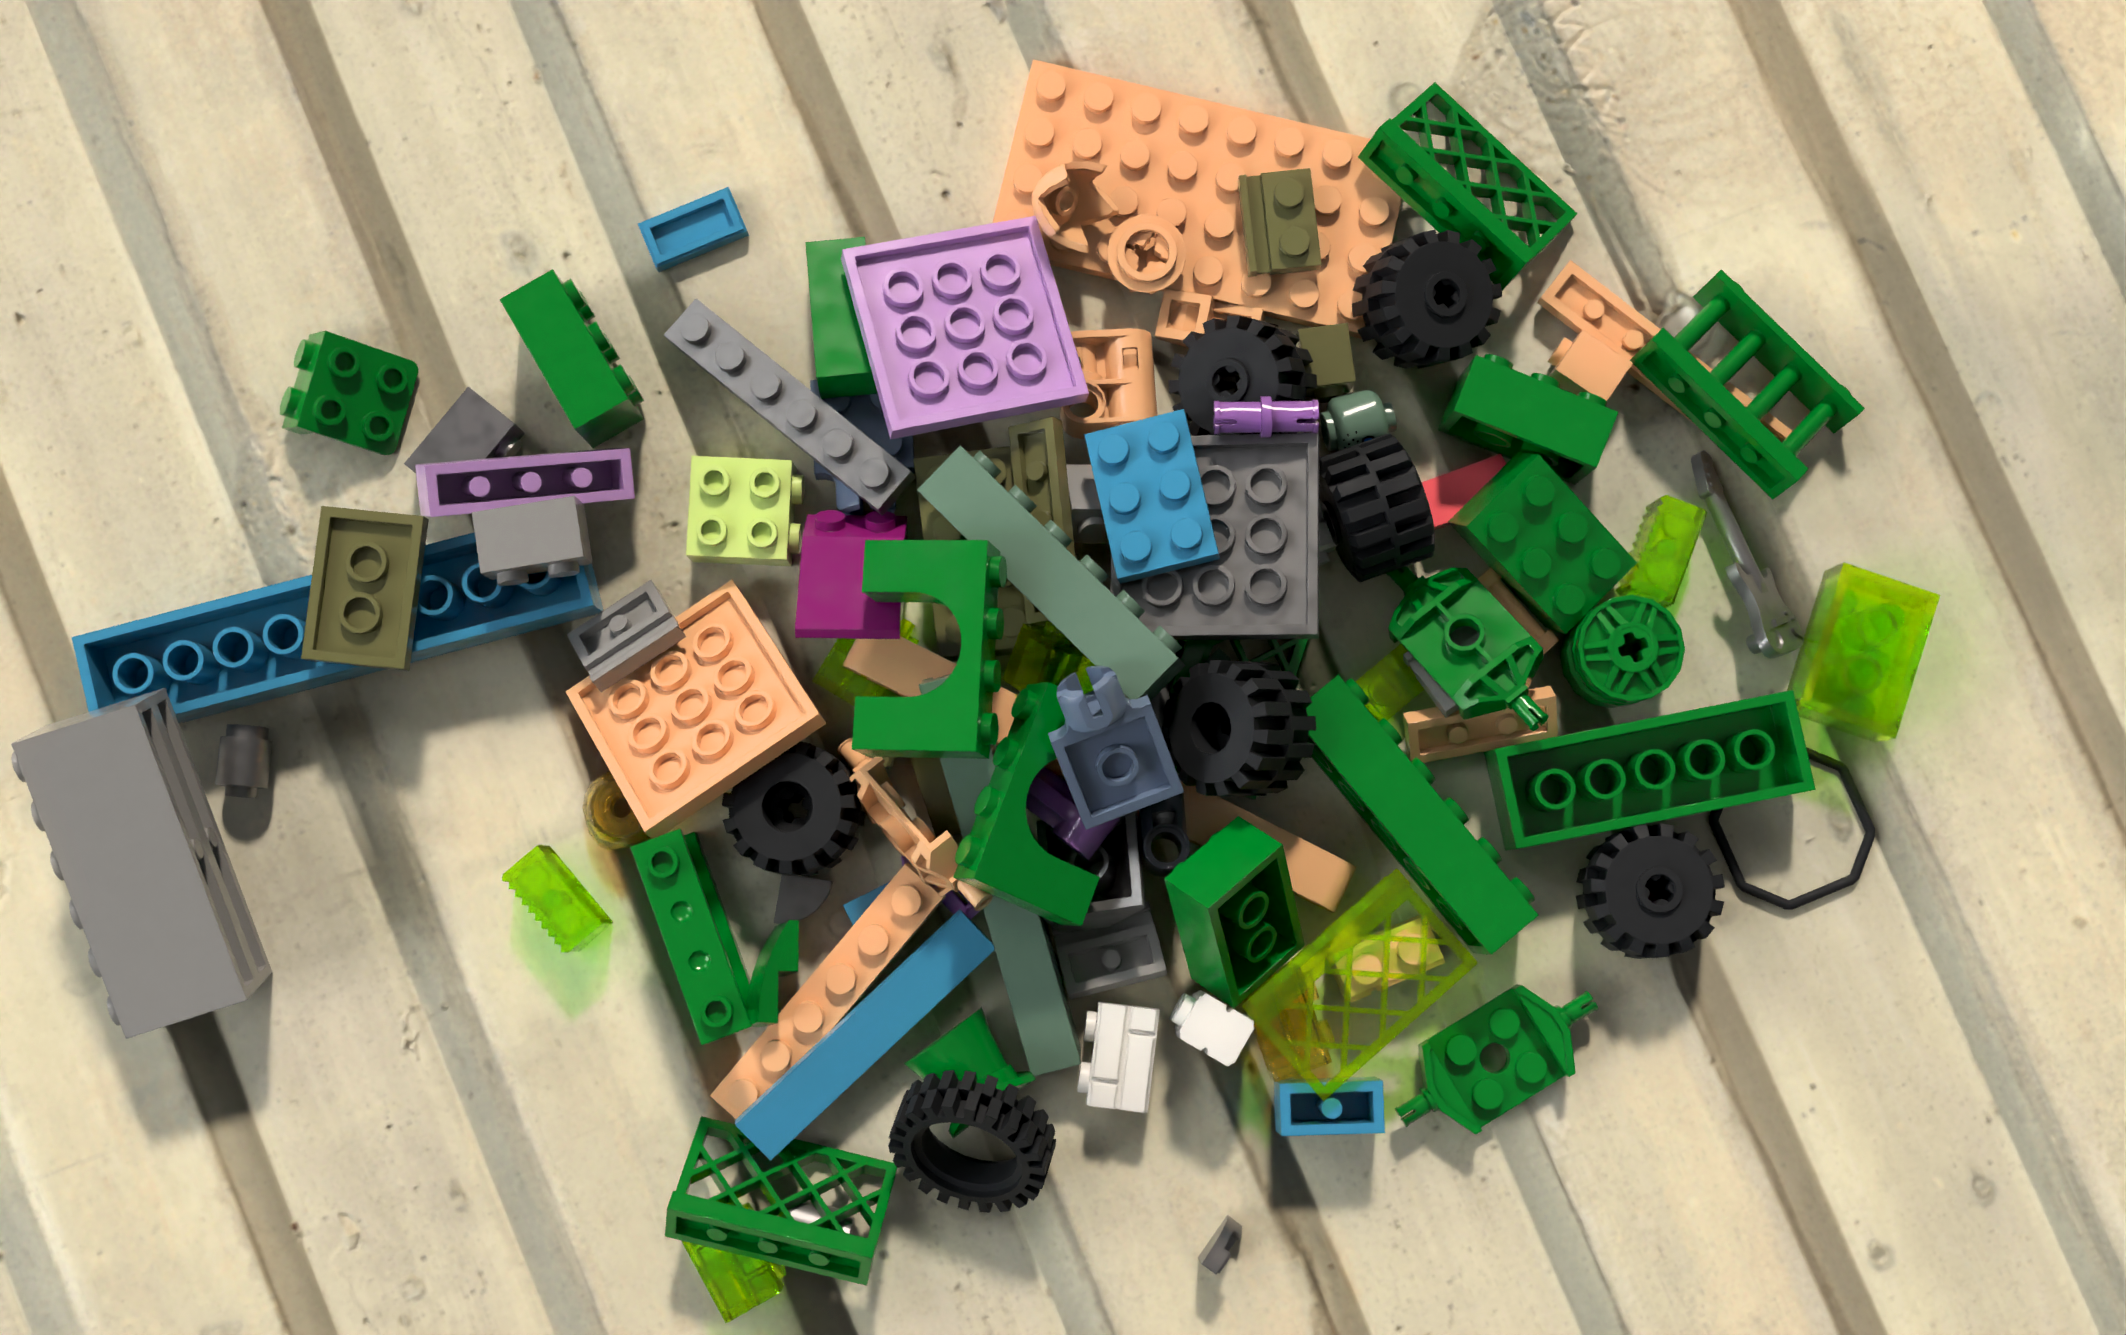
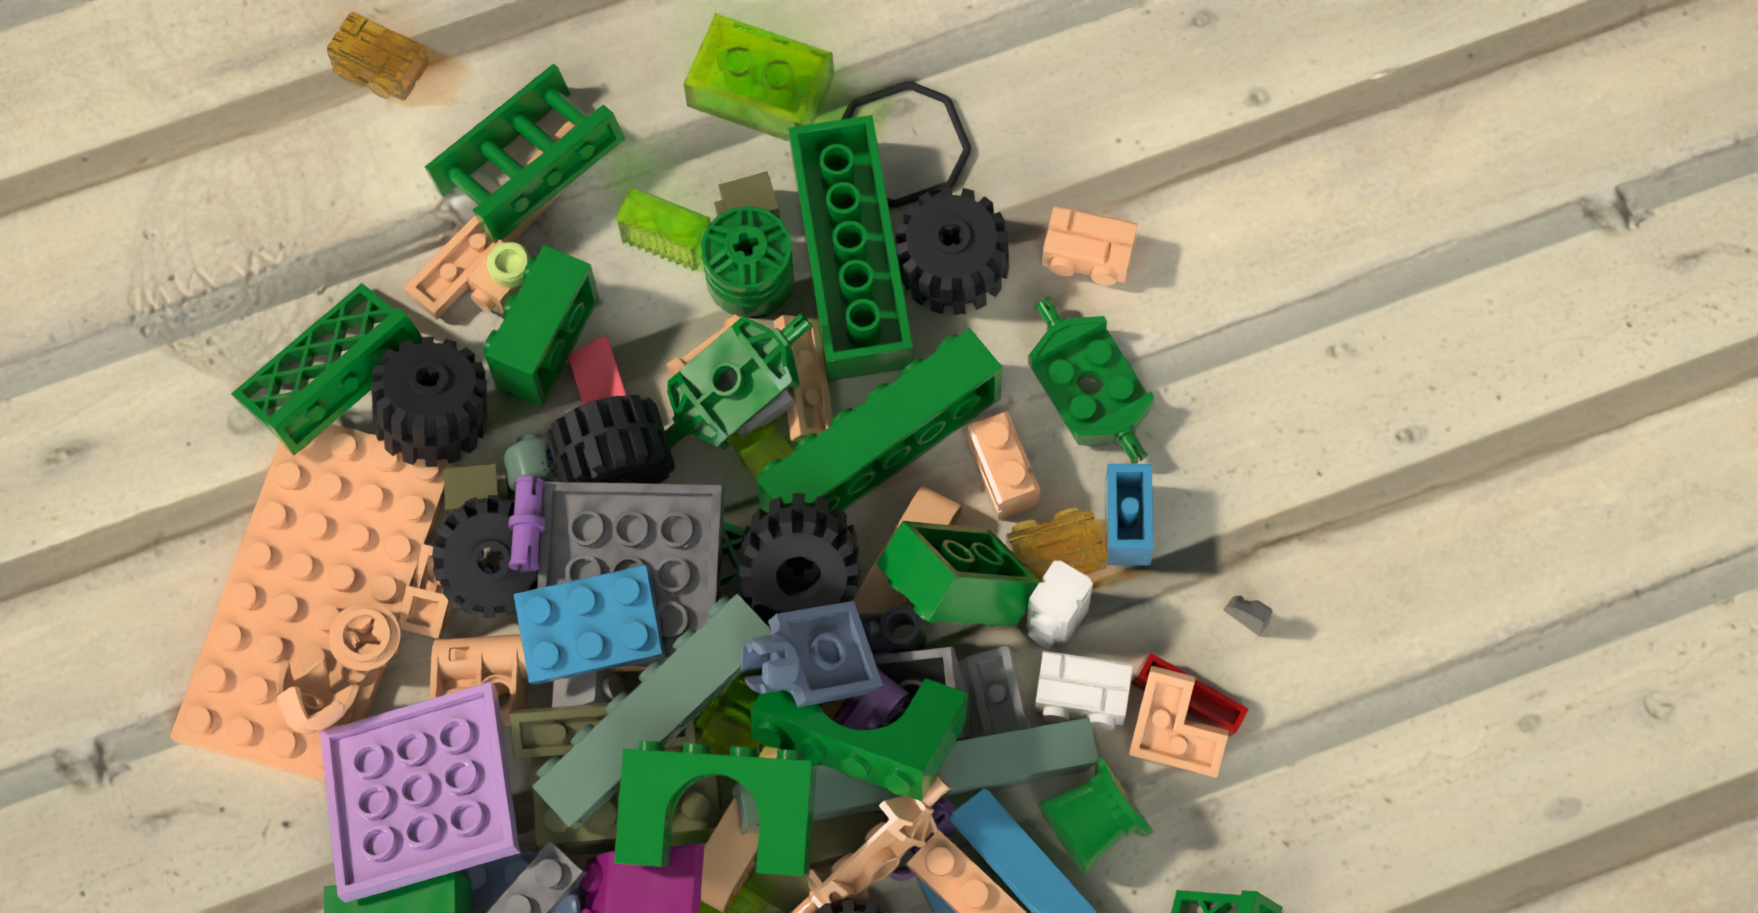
camera: 80 degrees left, 15 degrees down
(981, 1107) = (1121, 803): black tyre -> none
(1083, 1150) = (1166, 735): none -> light nougat plate
(1122, 1177) = (1205, 701): none -> red piece
(1279, 222) = (346, 523): olive plate -> none
(1327, 950) = (994, 504): clear neon green fence -> none
(1542, 542) = (649, 318): green brick -> none
(1600, 374) = (507, 264): none -> yellowish green tile
(1667, 1054) = (1089, 245): none -> light nougat brick
(1706, 648) = (748, 191): none -> olive brick
(1771, 620) = (732, 144): flat silver piece -> none
(1864, 203) = (377, 57): none -> clear yellow brick

